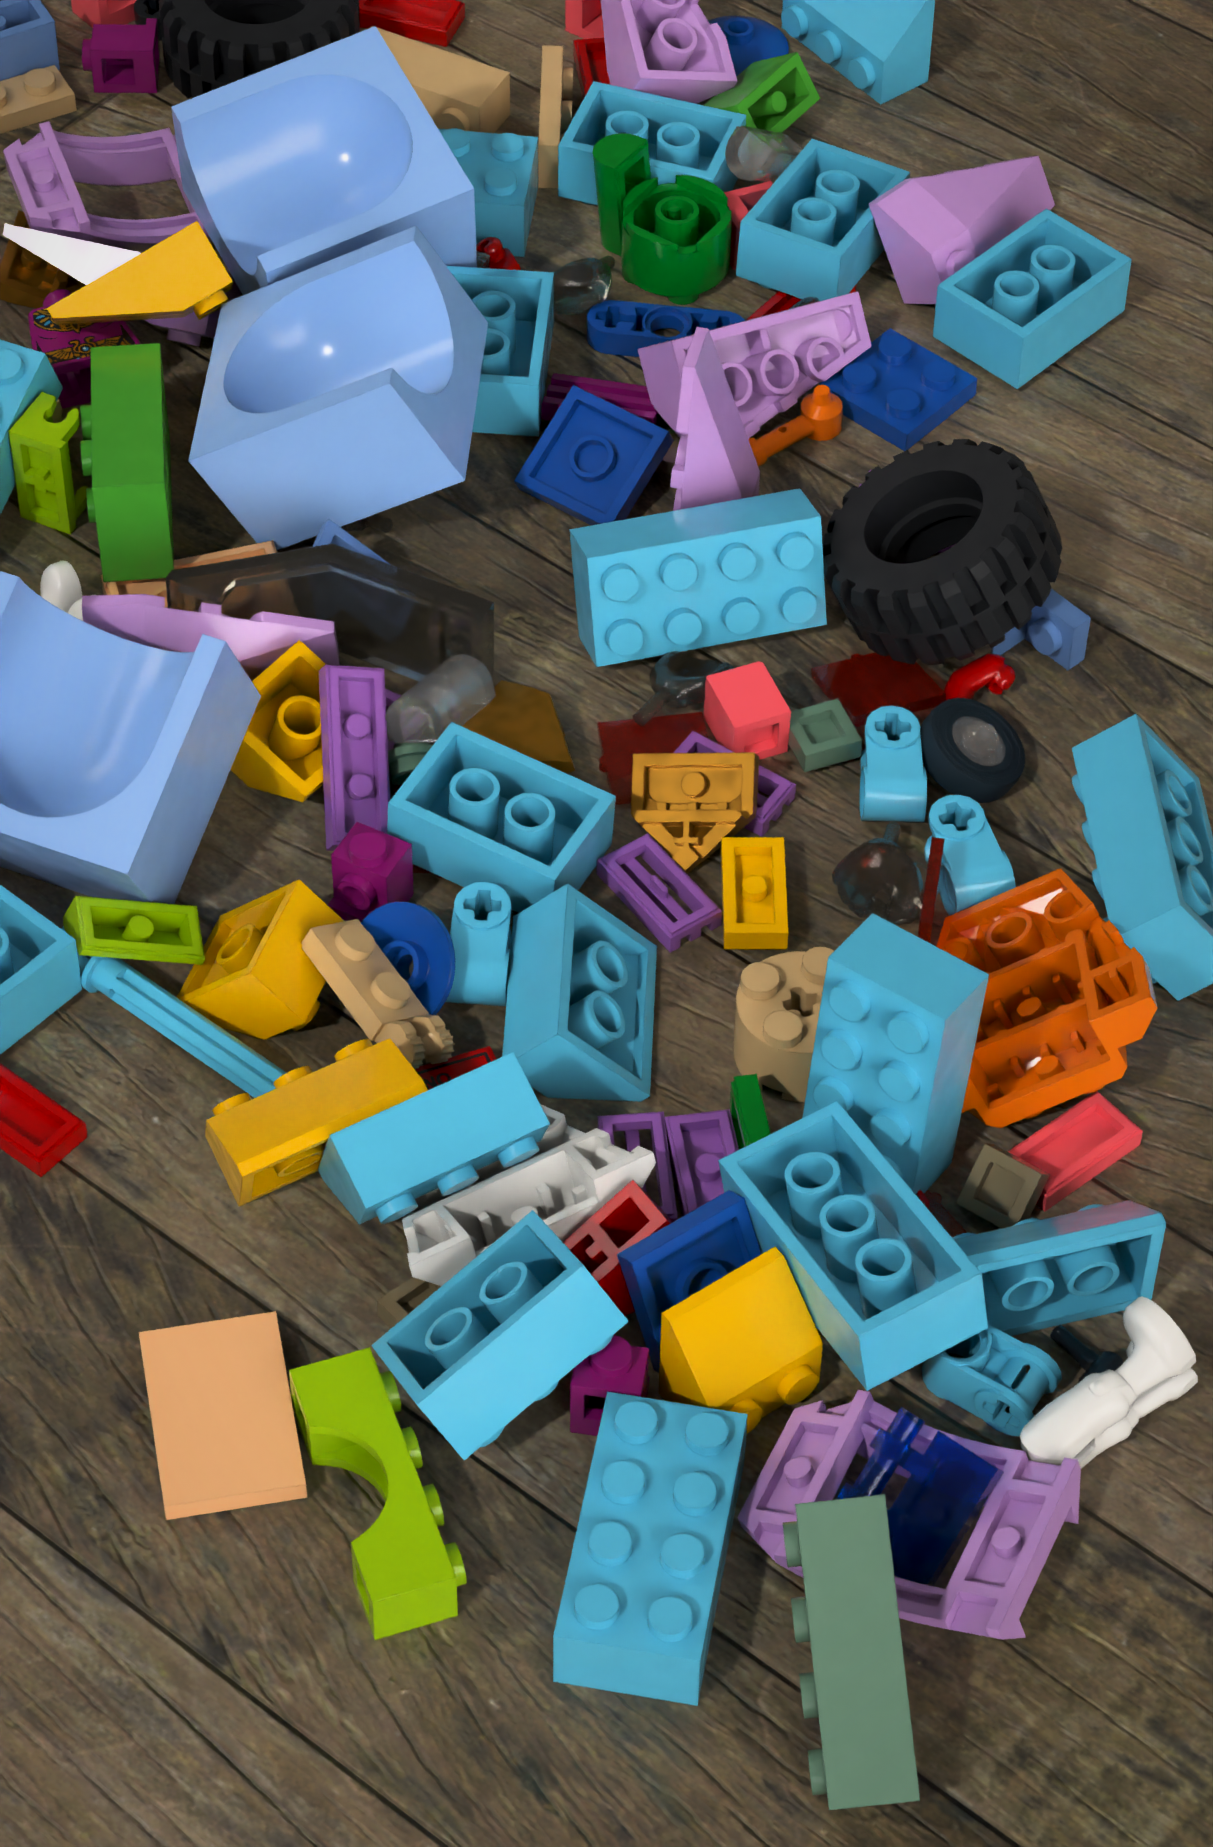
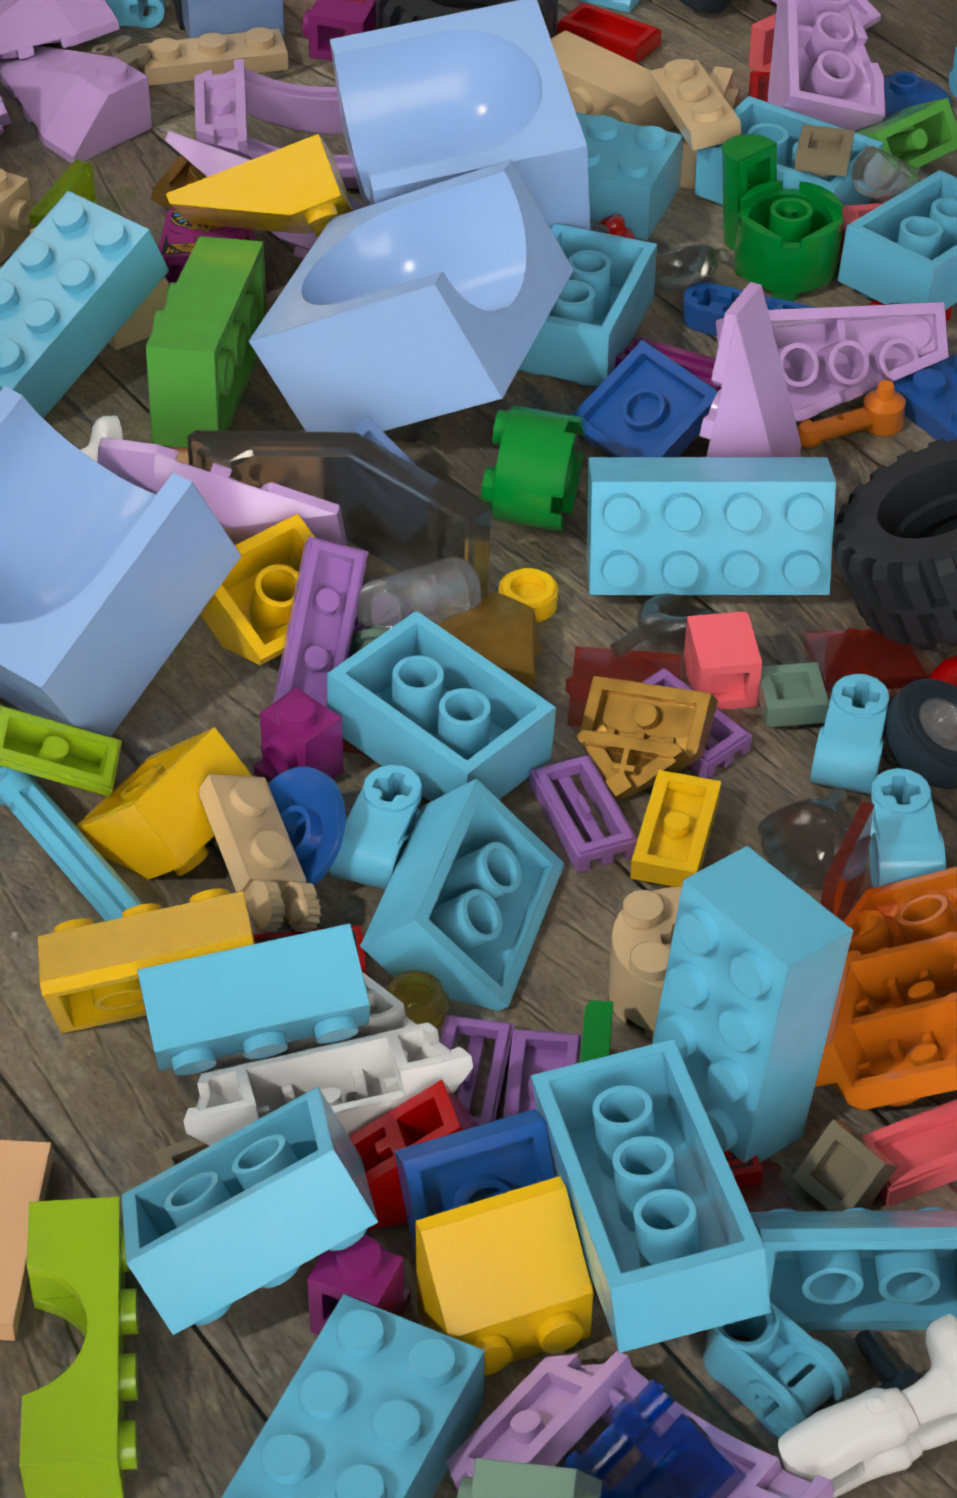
camera: 15 degrees right, 5 degrees down
(44, 466) = (126, 329): lime hinge -> none
(508, 542) = (534, 468): none -> green brick
(536, 670) = (533, 589): none -> yellow tile
(543, 101) = (695, 103): none -> tan plate
(572, 1099) = (421, 996): none -> clear yellow plate
(695, 138) = (824, 150): none -> dark tan plate

